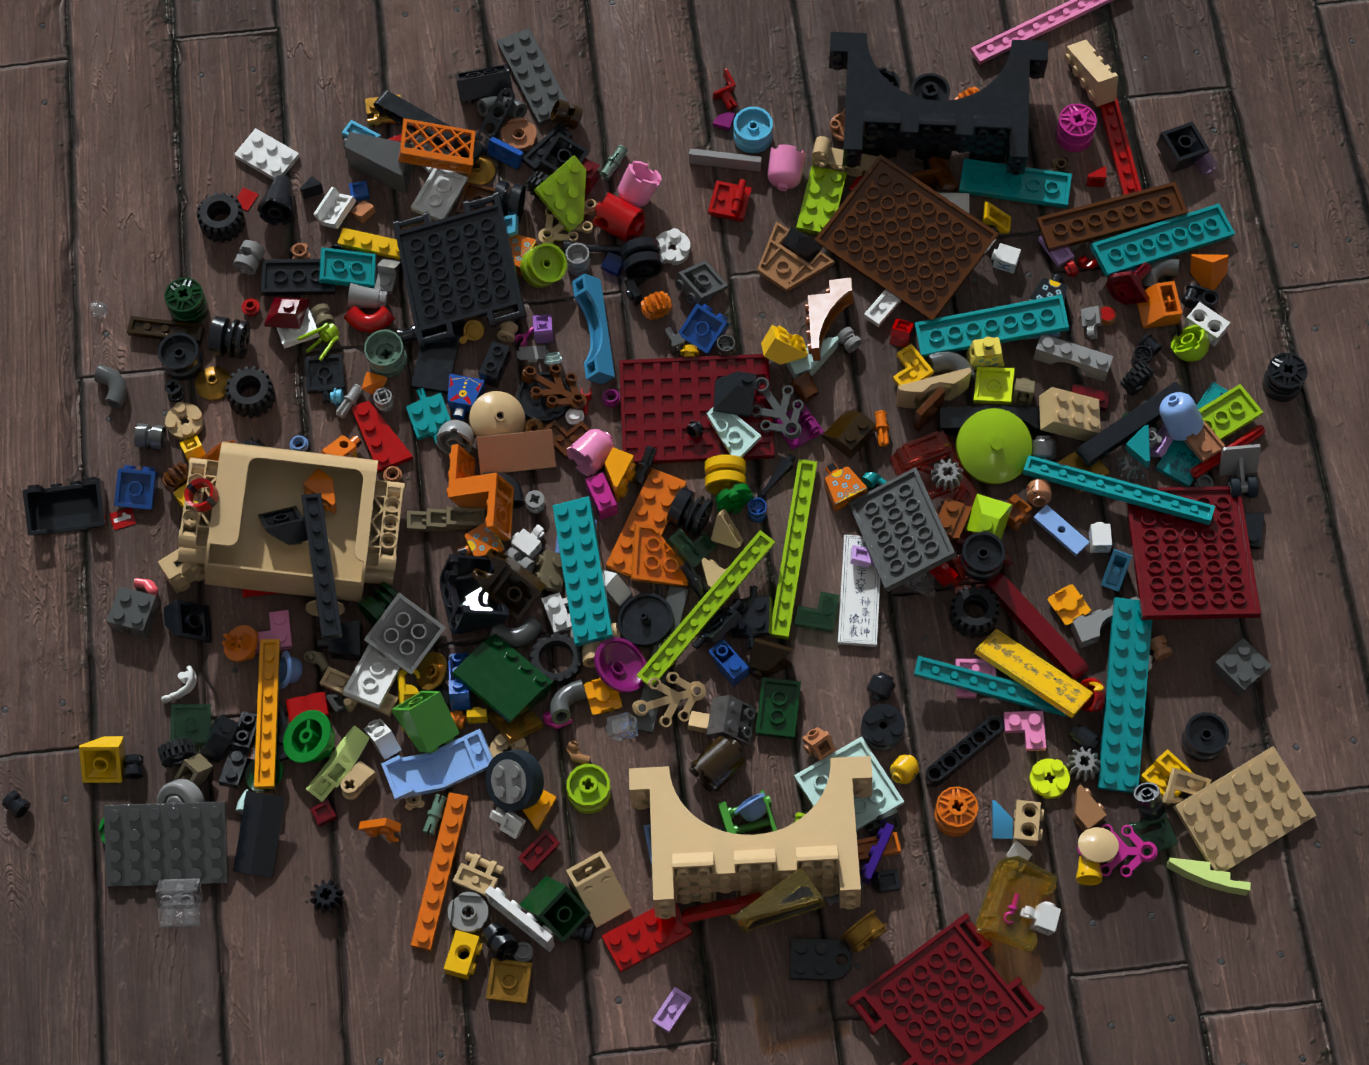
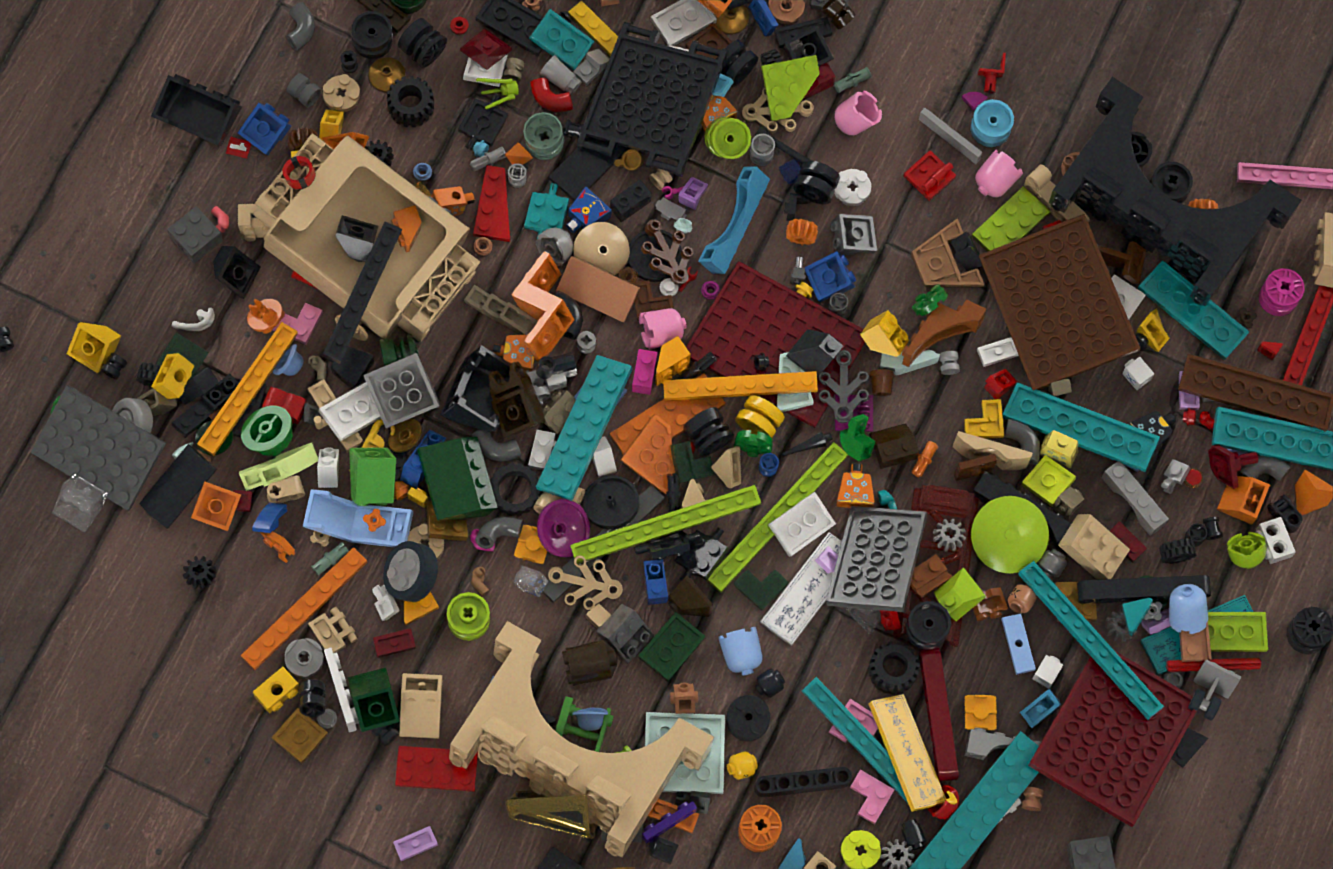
camera: 25 degrees right, 5 degrees up
(194, 740) = (173, 376): none -> yellow brick
(304, 830) = (215, 506): none -> orange slope
(358, 811) = (268, 517): none -> blue slope
(458, 757) = (380, 521): none -> orange plate
(524, 533) = (556, 364): none -> black piece
(619, 218) = (821, 134): red cylinder -> none
(691, 458) = (740, 386): none -> light orange plate
(717, 908) = (506, 783): red tile -> none
(800, 298) = (928, 302): none -> green plate
(815, 447) = (855, 441): none -> green brick
(818, 541) = (802, 524): none -> white tile
(840, 674) = (741, 650): none -> light blue cylinder
(952, 305) = (1060, 387): none -> dark tan slope

